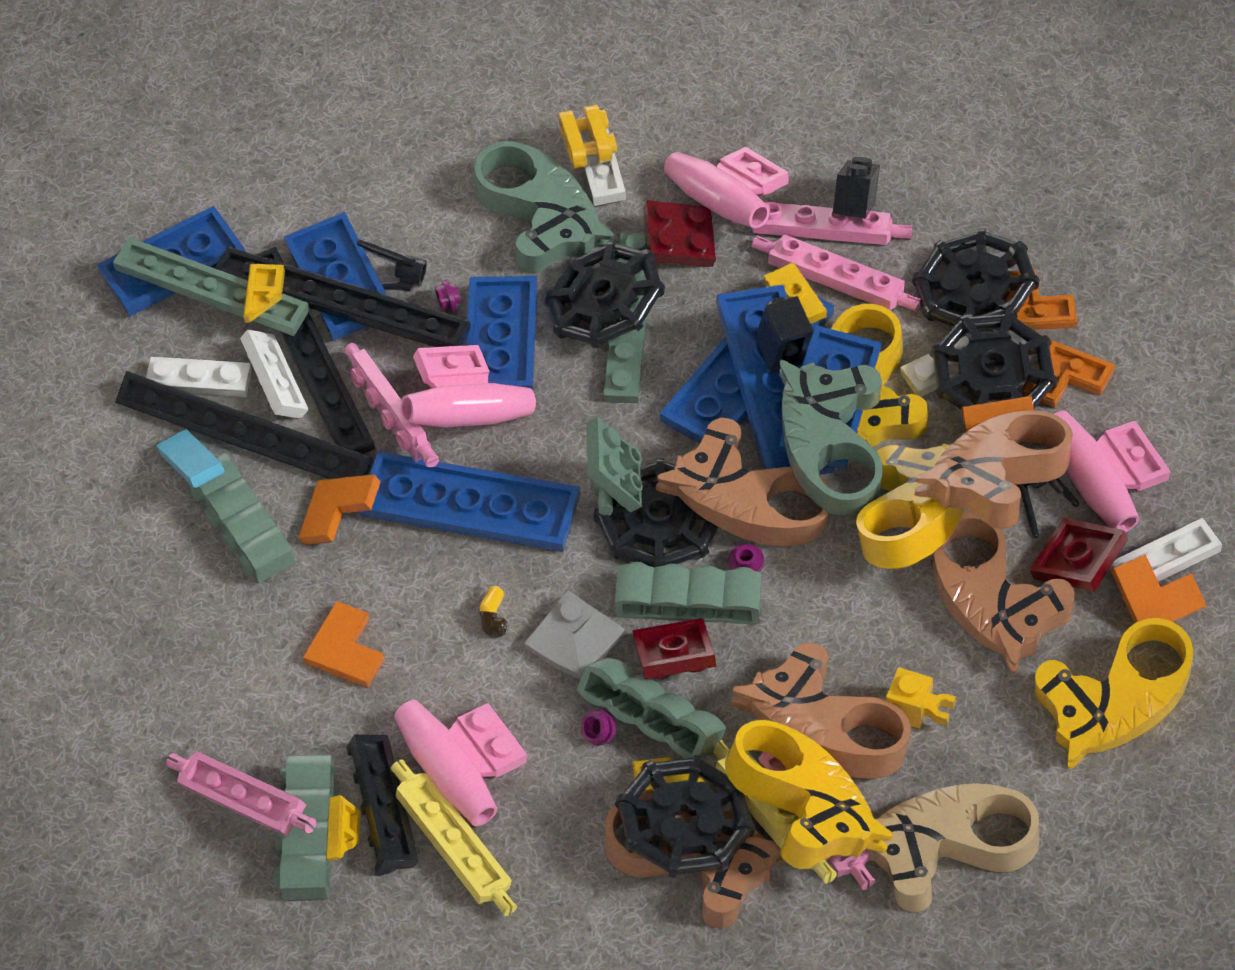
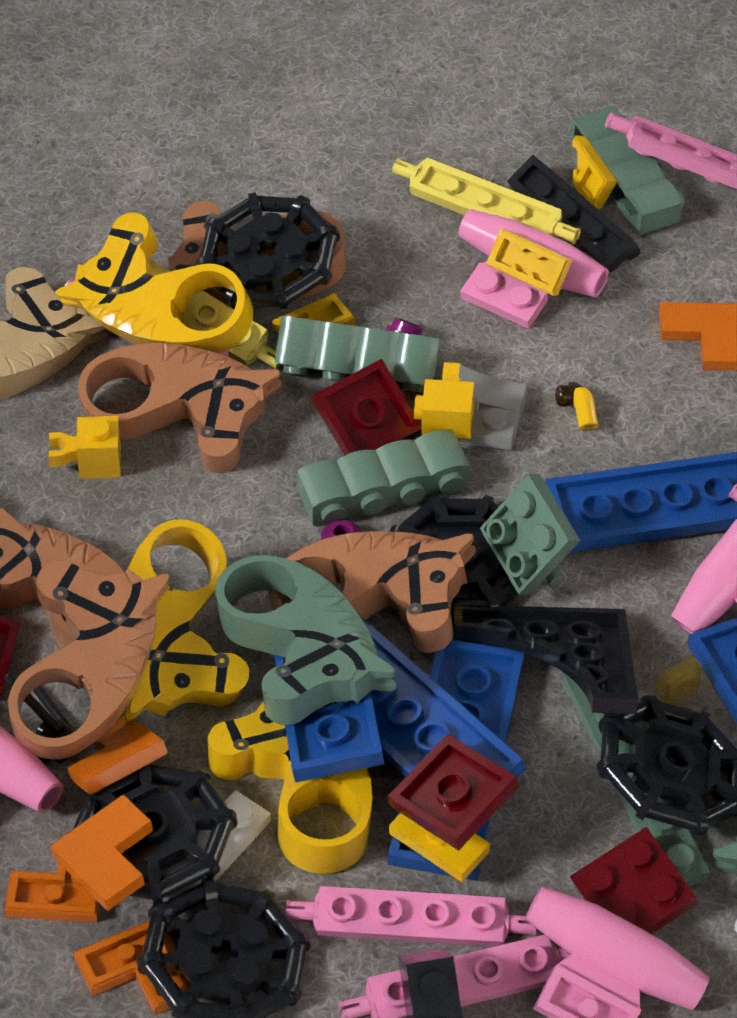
camera: 150 degrees right, 5 degrees down
(462, 729) = (529, 261): none -> yellow plate
(561, 357) = (679, 681): none -> clear yellow tile
(607, 619) = (446, 403): none -> yellow brick
(620, 394) = (580, 642): none -> black plate
(776, 276) = (453, 791): none -> dark red plate
(784, 333) = (408, 710): black brick -> none
(1041, 350) = (95, 850): none -> orange tile

